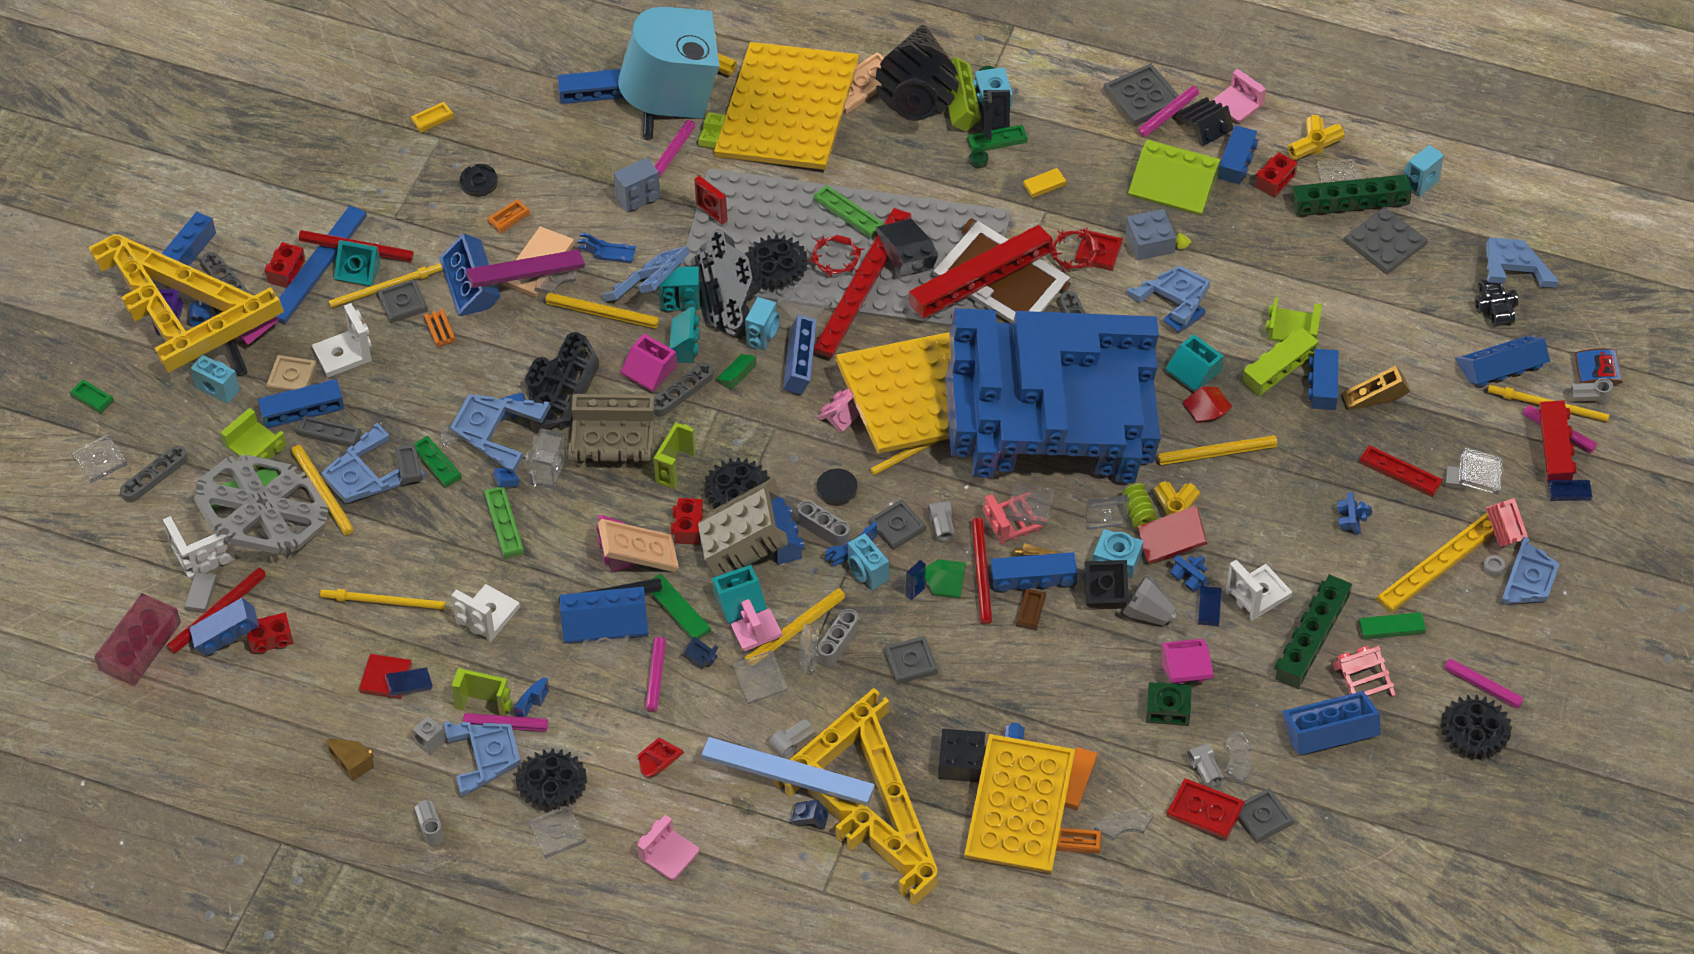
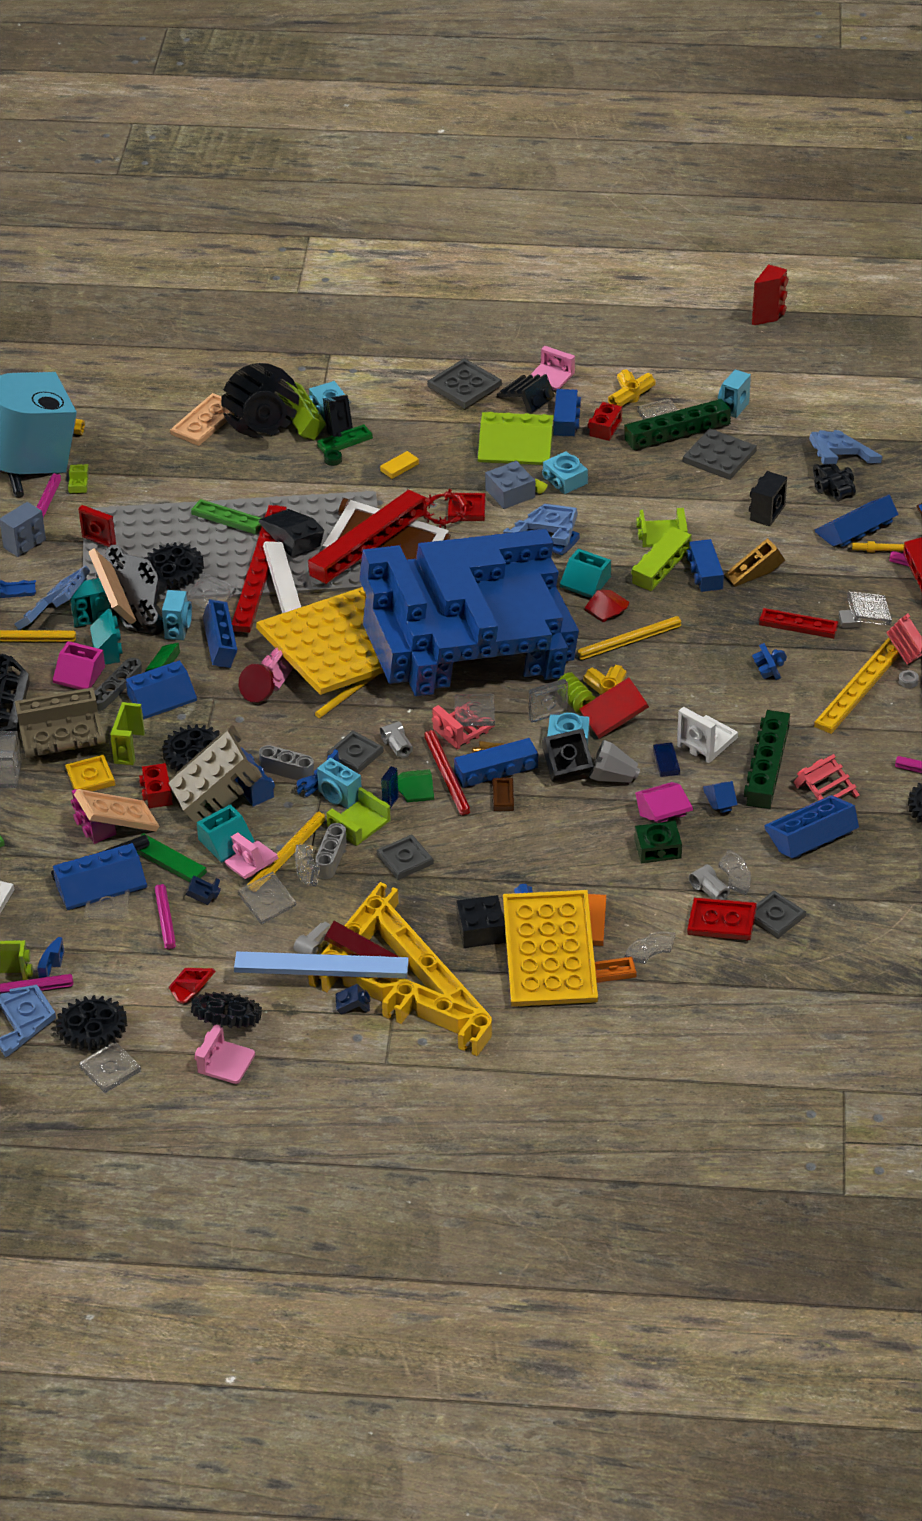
camera: 15 degrees left, 10 degrees down
(628, 491) = (90, 774): none -> yellow tile
(667, 793) = (212, 1009): none -> black gear
(704, 279) = (112, 586): none -> light nougat tile
(723, 408) = (161, 689): none -> blue slope
(787, 105) = (142, 447): yellow plate -> none
(819, 423) = (256, 683): none -> dark red tile
(830, 757) = (353, 942): none -> dark red tile
(837, 486) = (288, 732): black tile -> none
(838, 239) = (227, 538): red piece -> none
(879, 605) = (361, 818): none -> lime panel
(881, 301) = (281, 576): none -> white tile
(1168, 111) = (492, 391): dark pink axle -> none
(1196, 578) = (640, 731): blue hips -> none
(1213, 231) = (565, 472): none -> medium azure brick
(1250, 663) = (721, 795): none -> blue slope
(1392, 625) = (836, 742): green tile -> none
(1415, 312) = (768, 498): none -> black brick
(1500, 53) = (769, 295): none -> red slope

